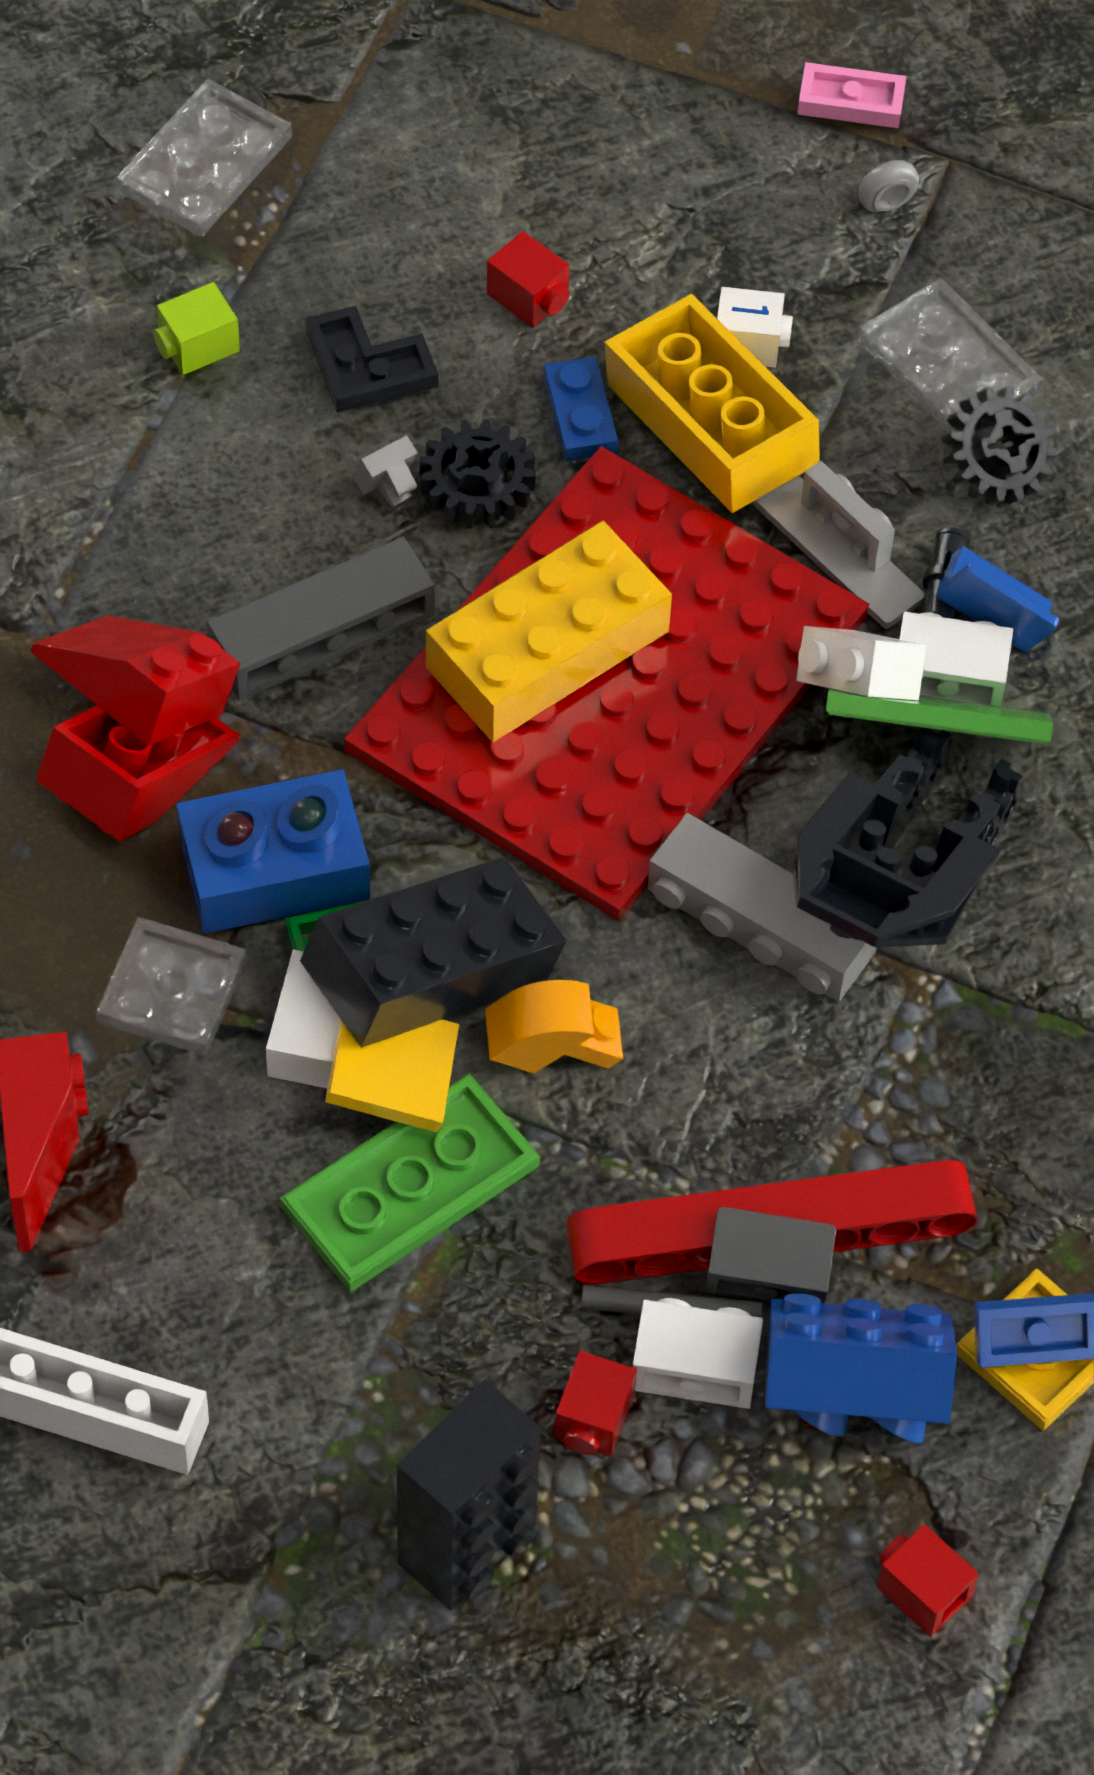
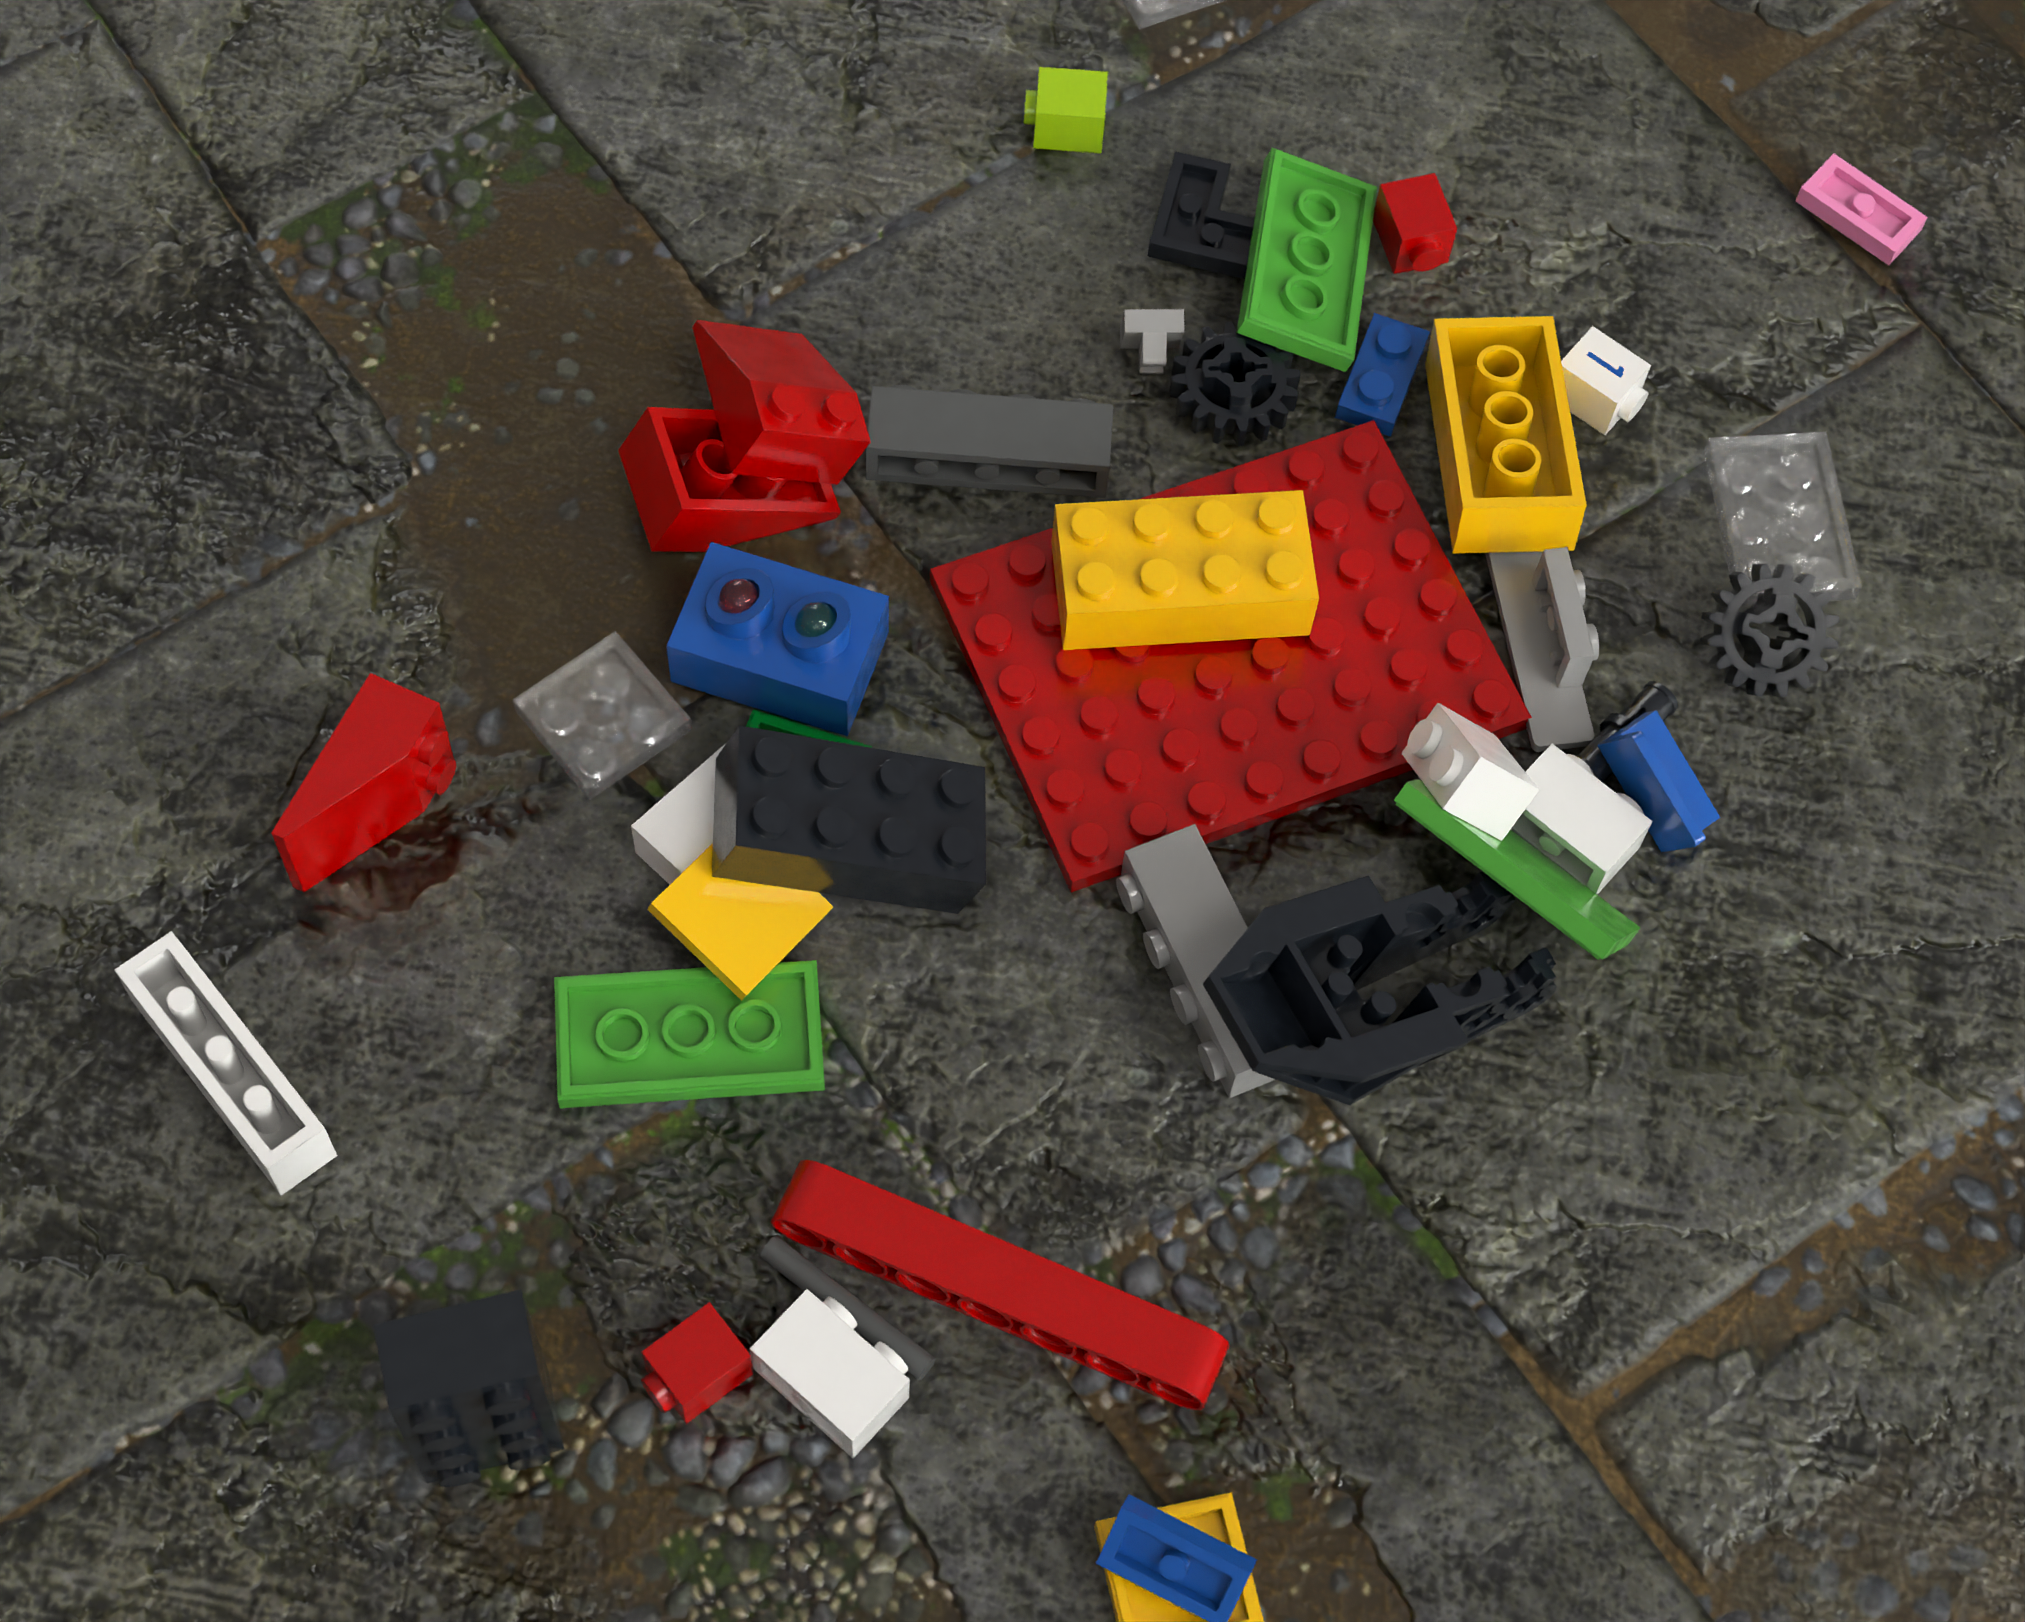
camera: 30 degrees right, 5 degrees up
(468, 348) = (1307, 260): none -> bright green tile
(550, 1021) = (924, 956): light orange brick -> none
(769, 1256) = (965, 1320): dark grey panel -> none
(860, 1363) = (969, 1485): blue piece -> none
(888, 186) = (1836, 315): light grey piece -> none

